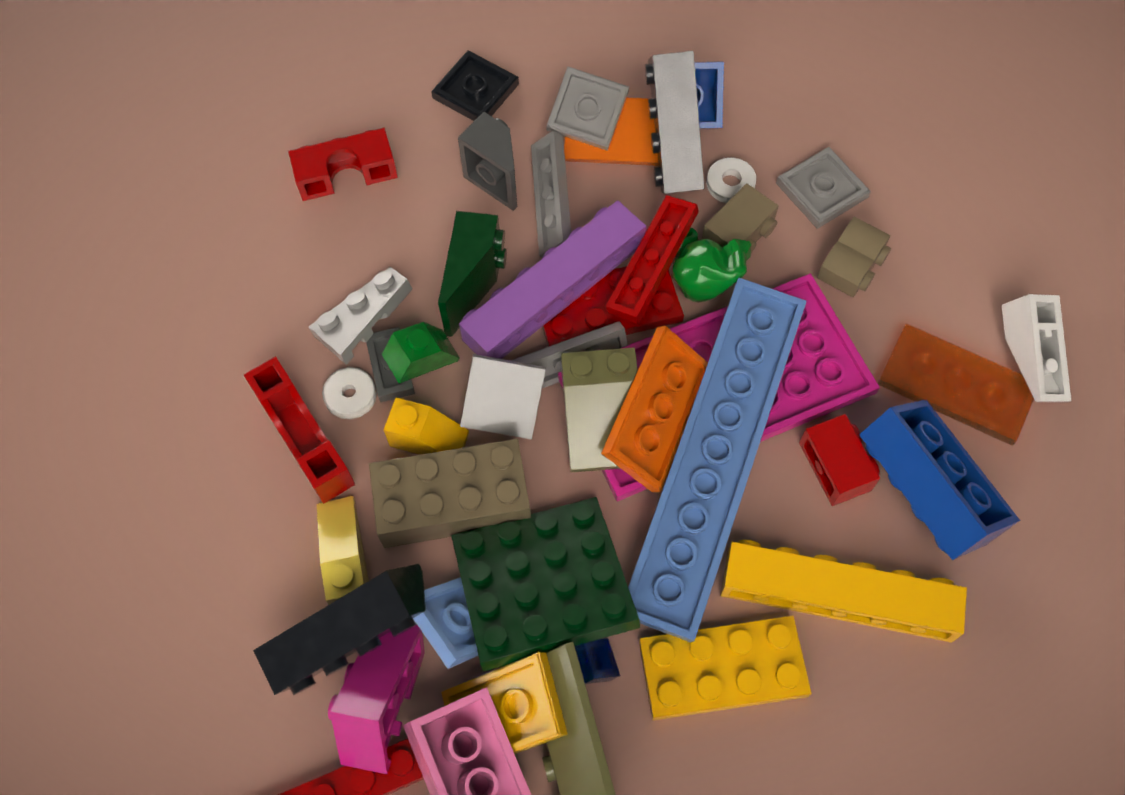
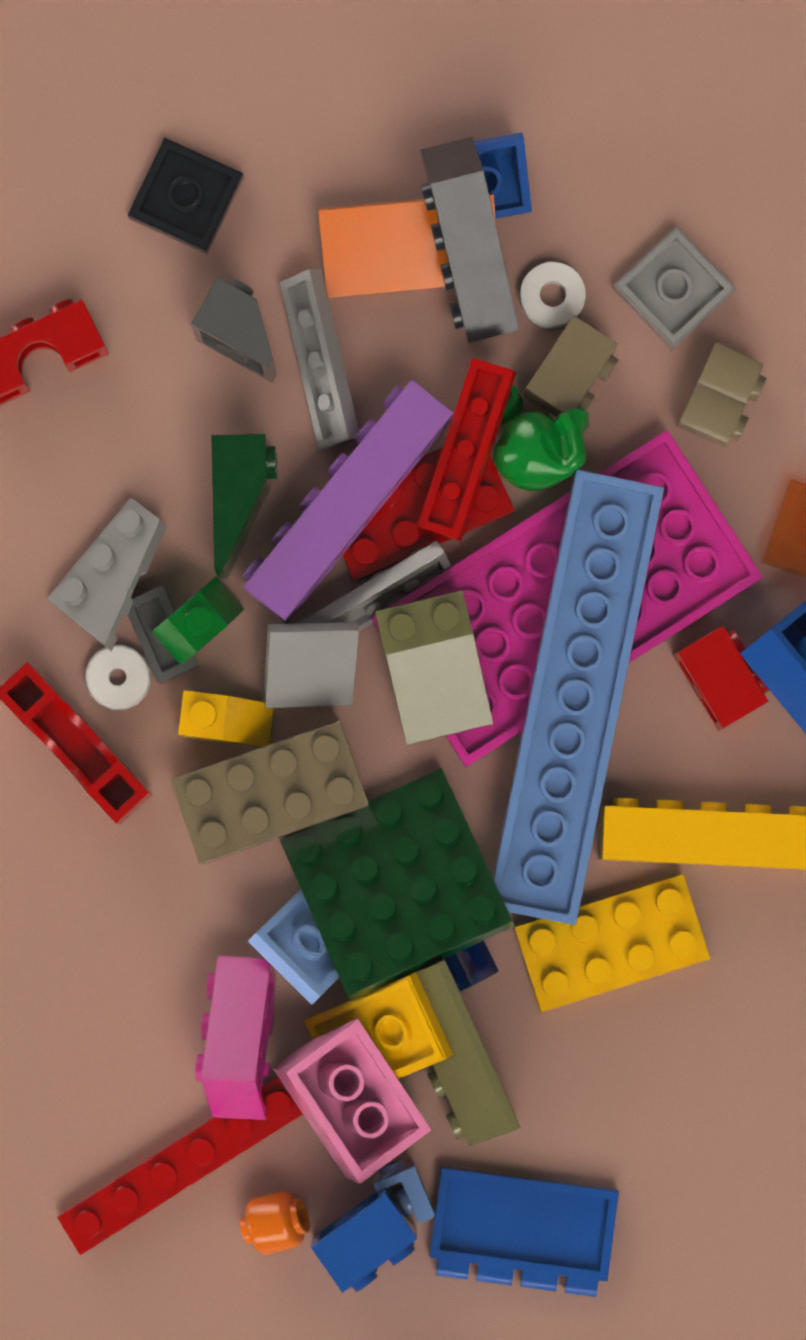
camera: 15 degrees left, 20 degrees up
(340, 548) = (157, 880): light yellow slope -> none
(343, 628) = (192, 983): black slope -> none
(587, 108) = (349, 229): light grey tile -> none
(656, 410) = (499, 660): orange tile -> none

